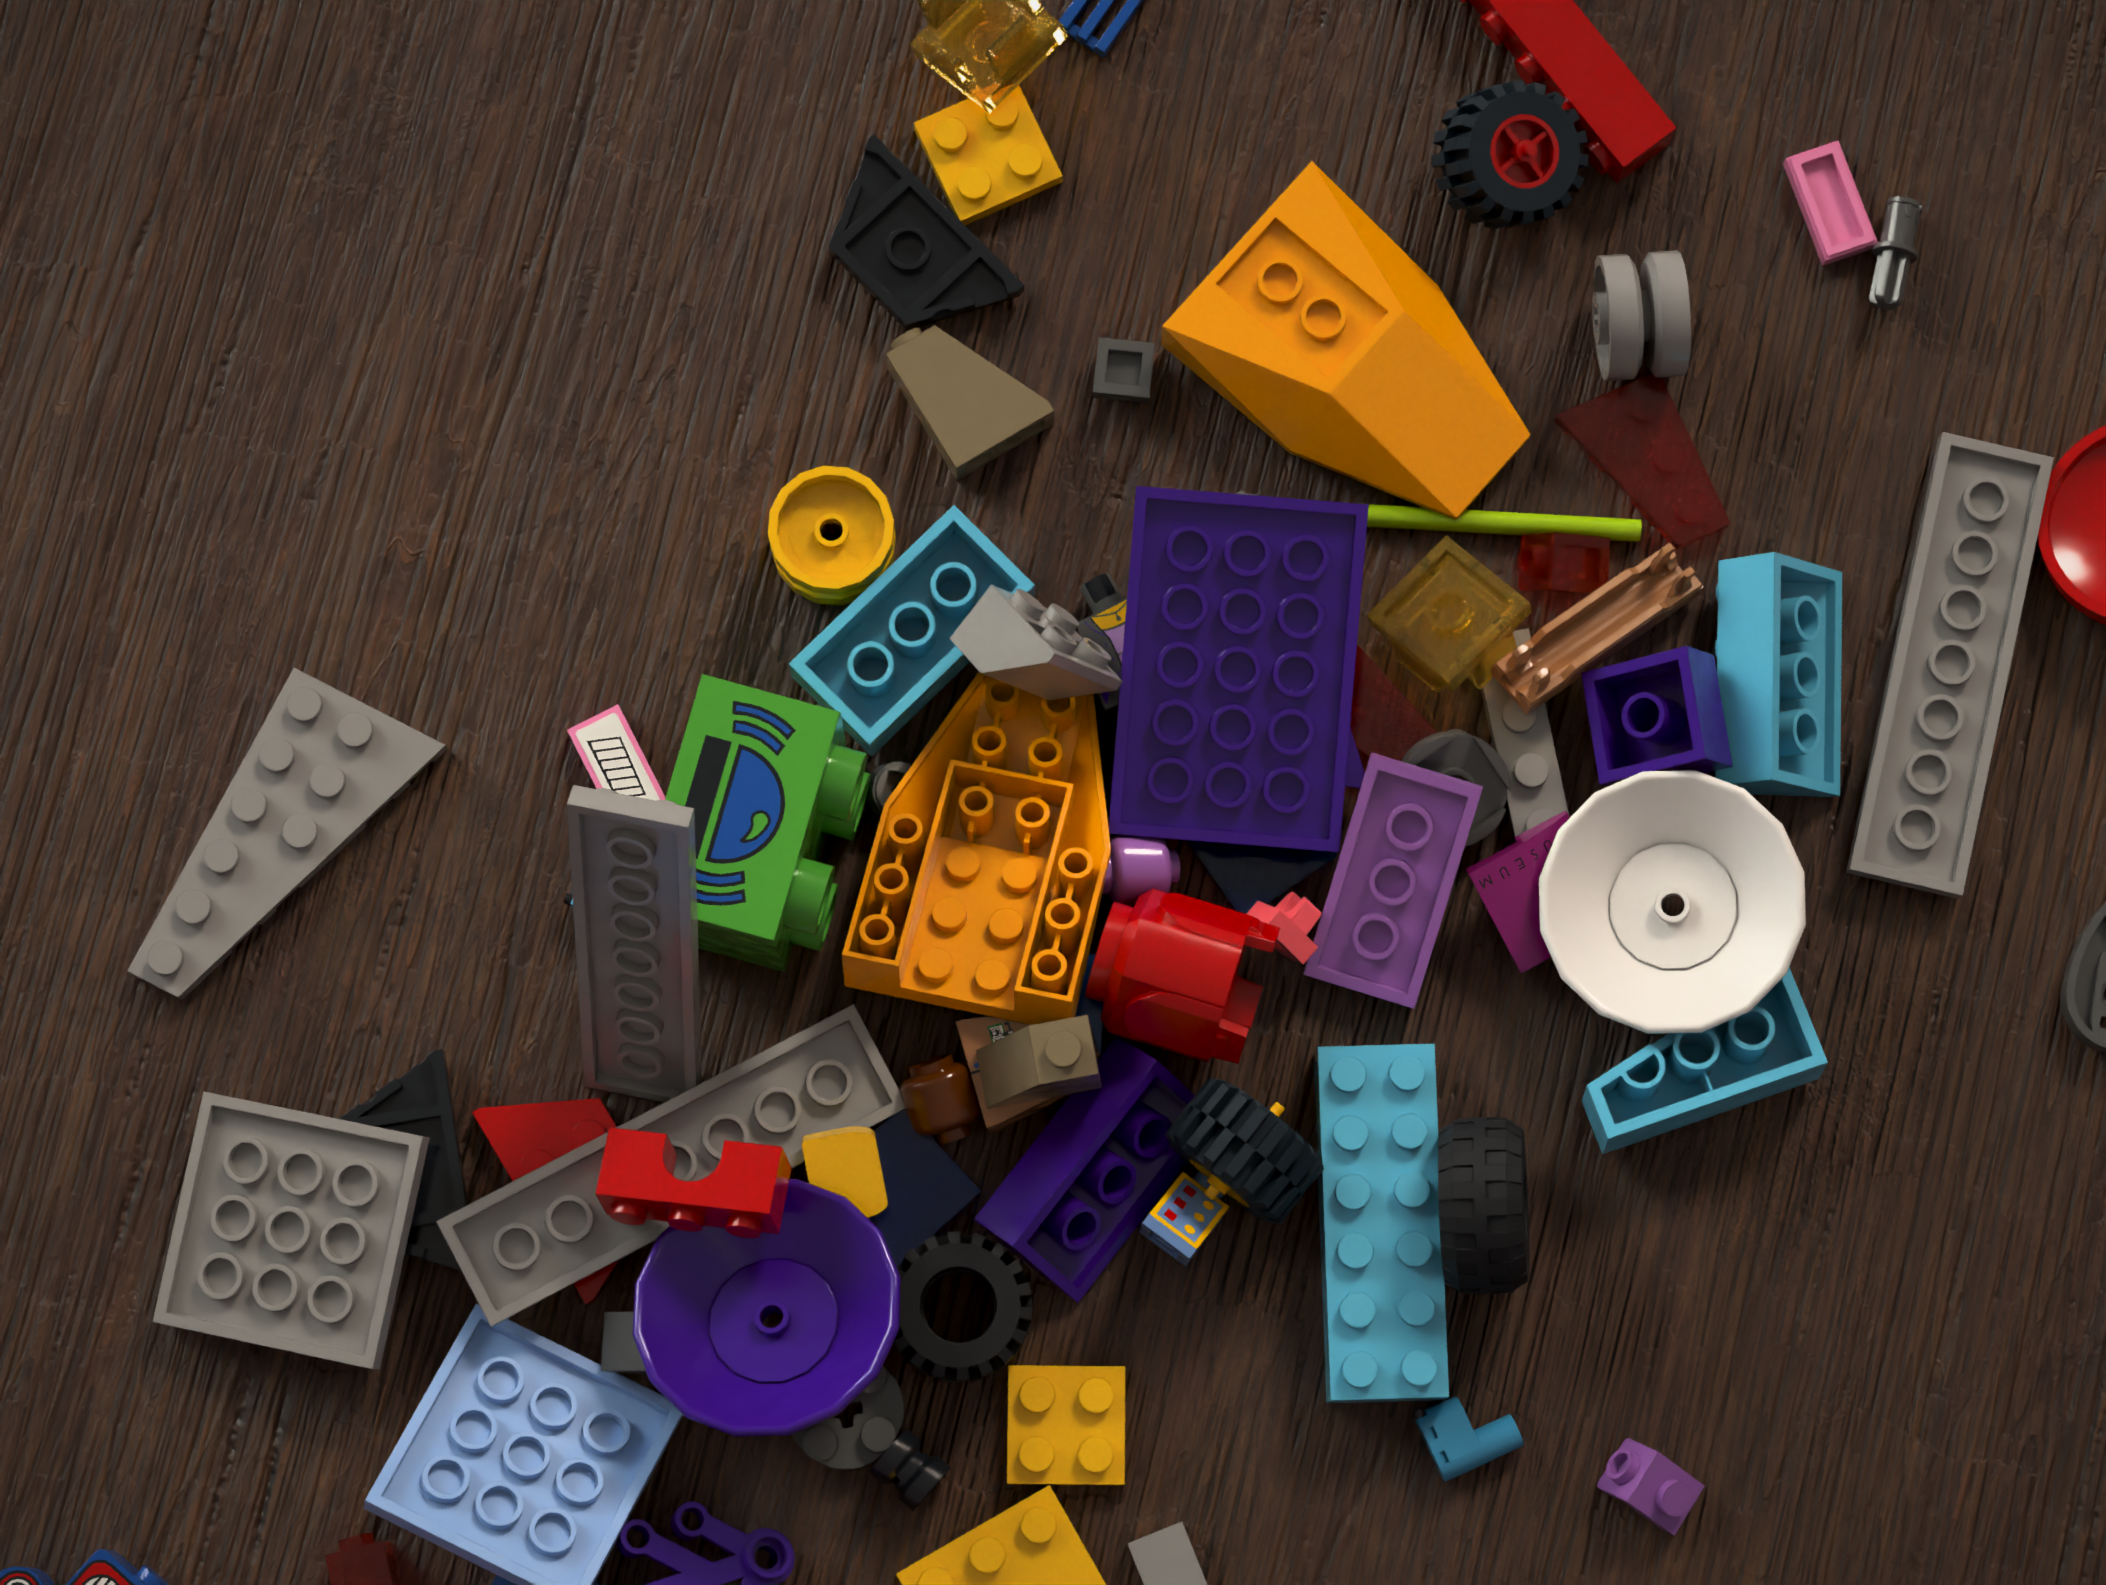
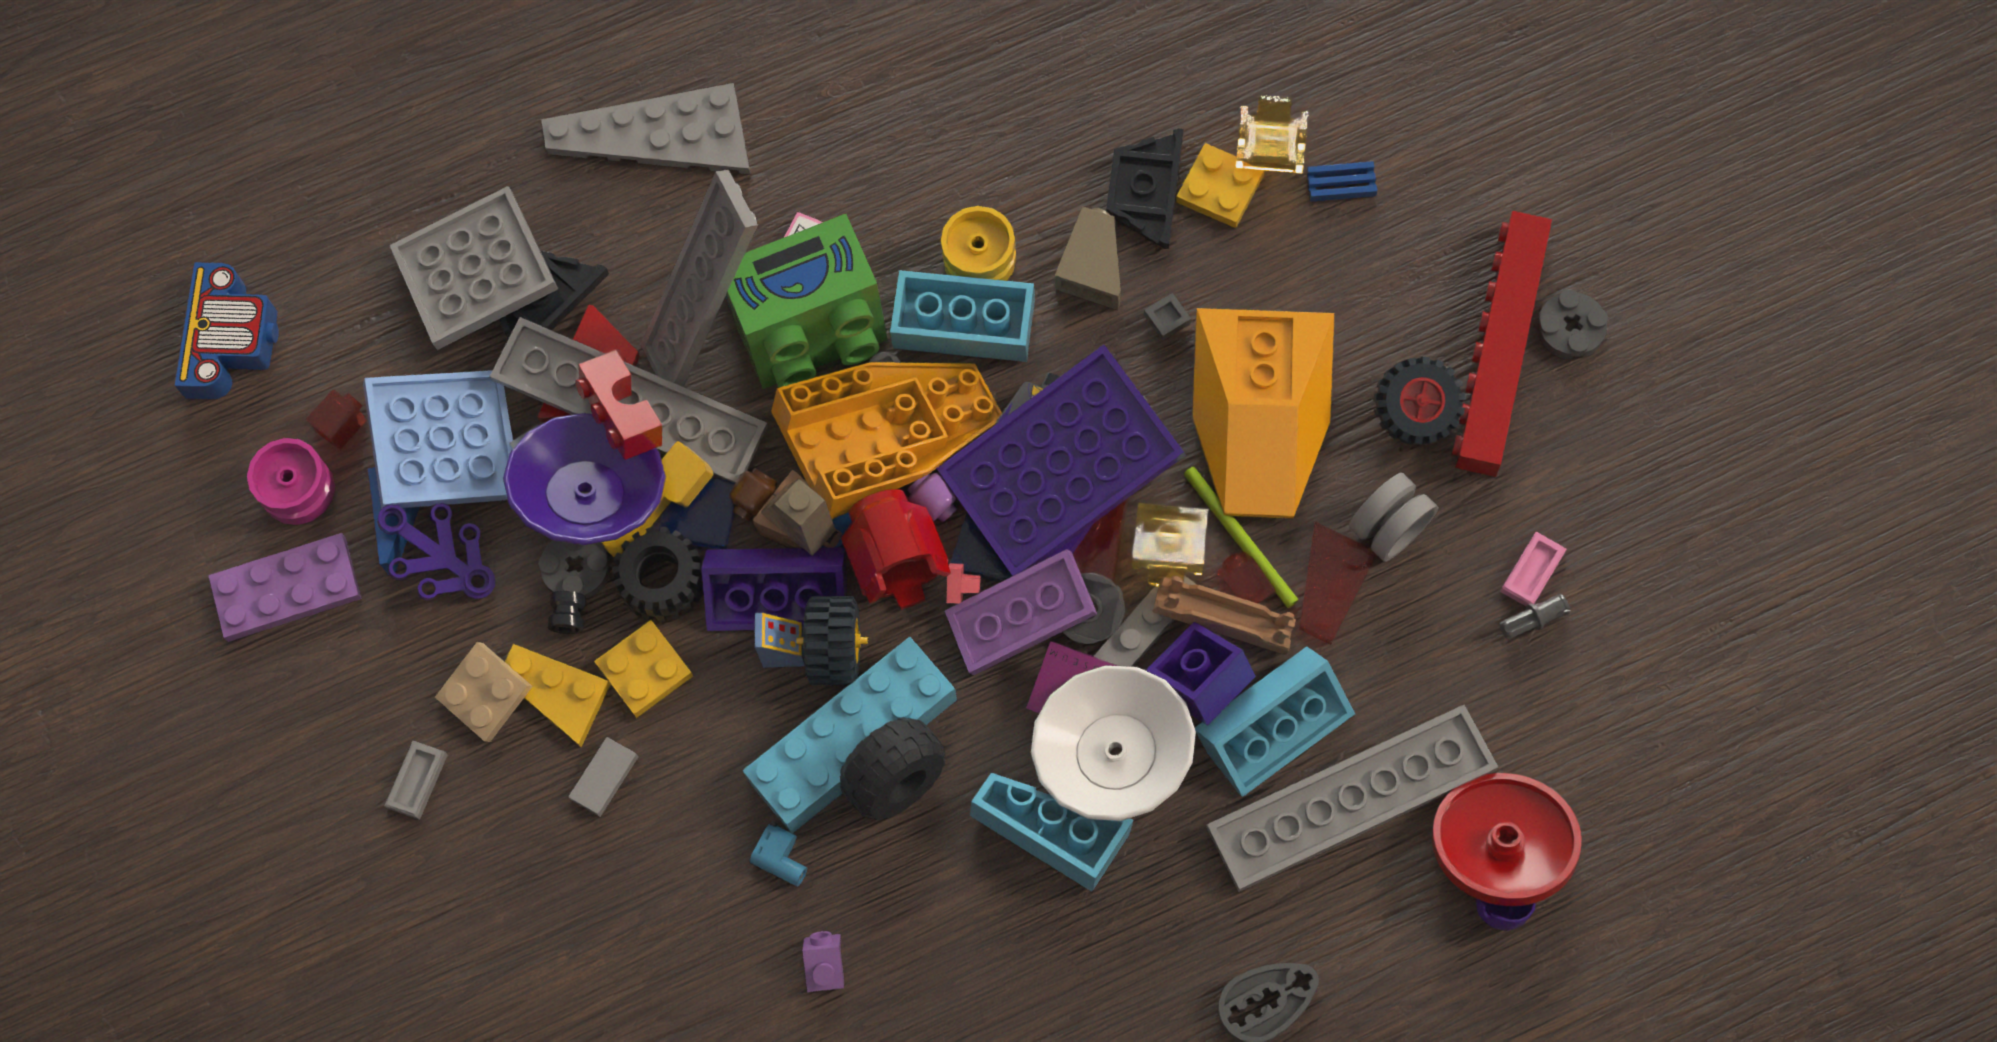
camera: 60 degrees right, 10 degrees down
(1033, 647) = (993, 363): light grey slope -> none

